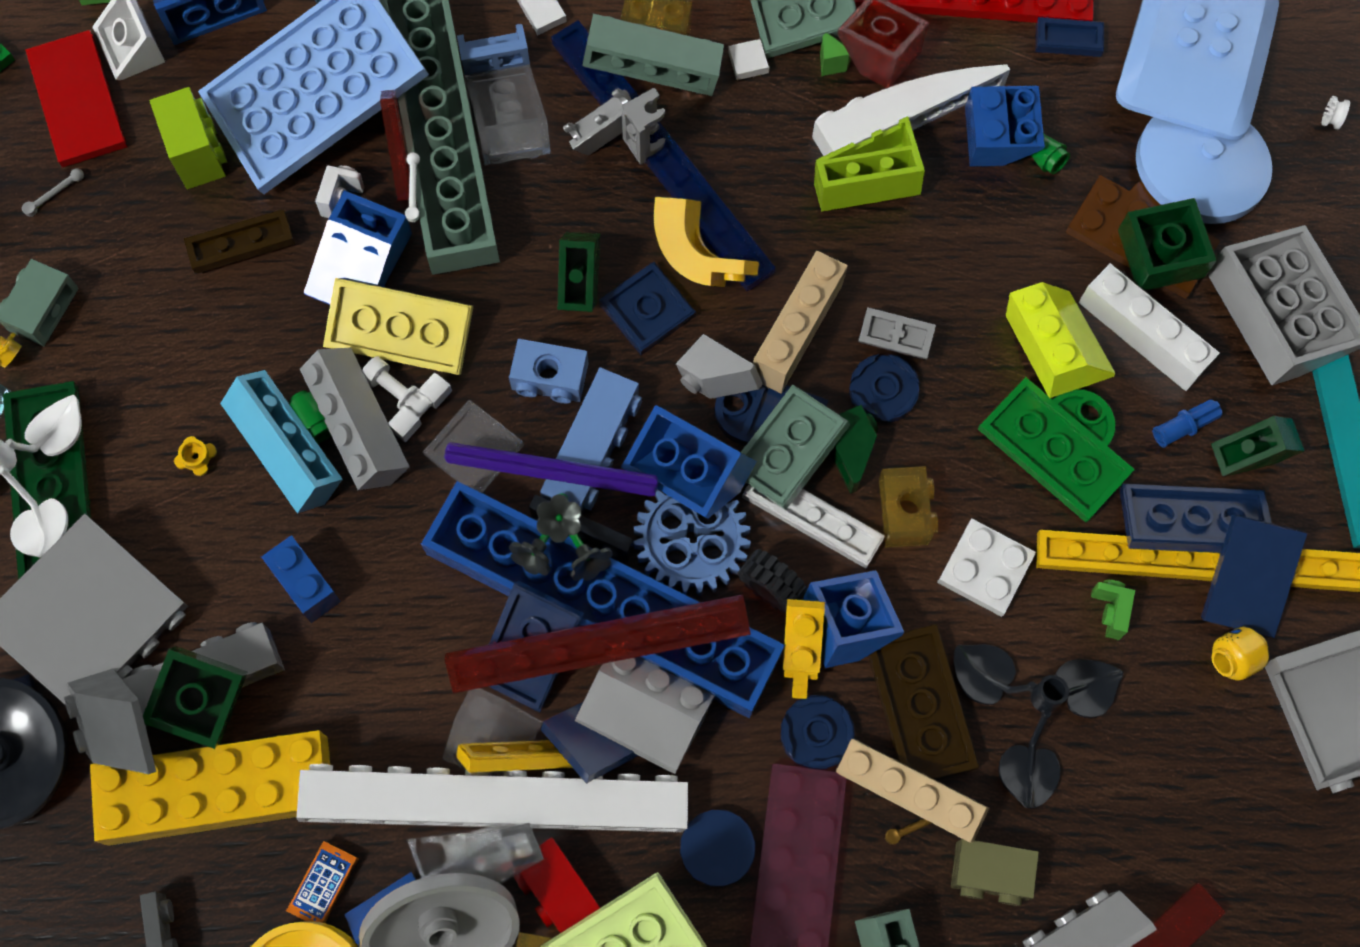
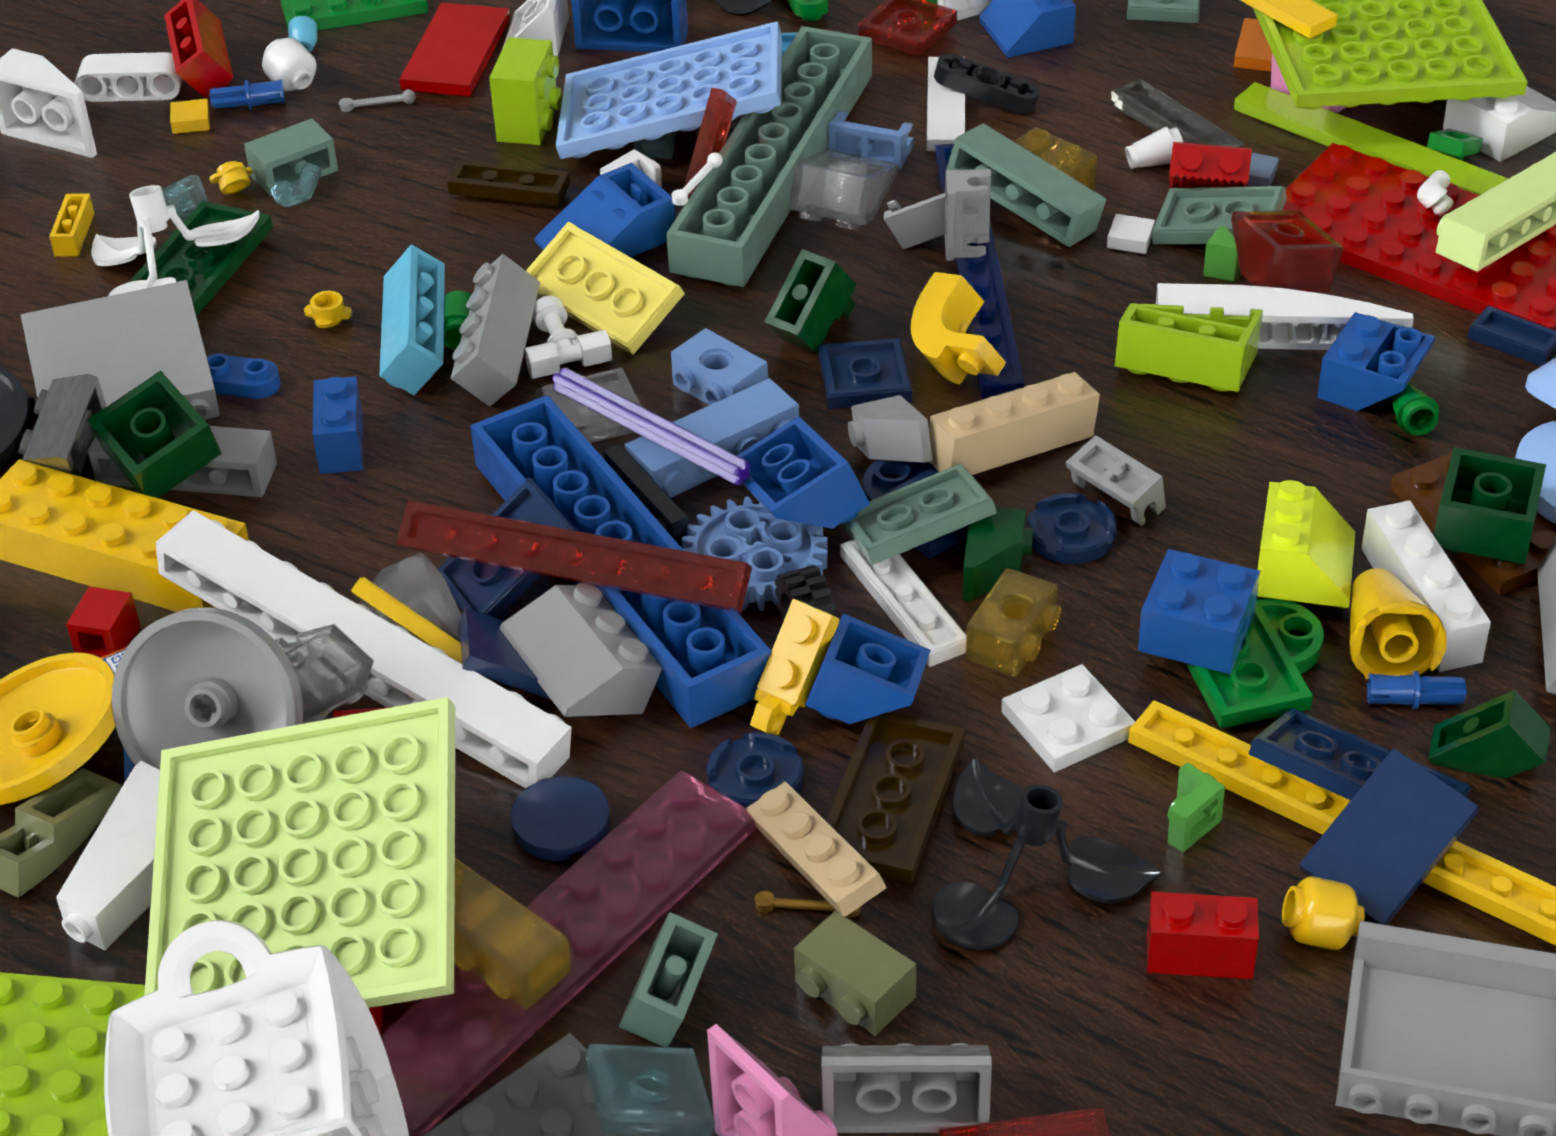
camera: 35 degrees right, 30 degrees down
(69, 333) = (300, 191): none -> clear light blue arm
(174, 562) = (243, 376): none -> blue plate
(271, 868) = (103, 622): none -> red brick
(558, 521) = (614, 487): pearl dark grey plant -> none
(1035, 444) = (1198, 611): none -> blue brick
(1149, 379) = (1392, 627): none -> yellow cone
(1183, 715) = (1202, 935): none -> red brick

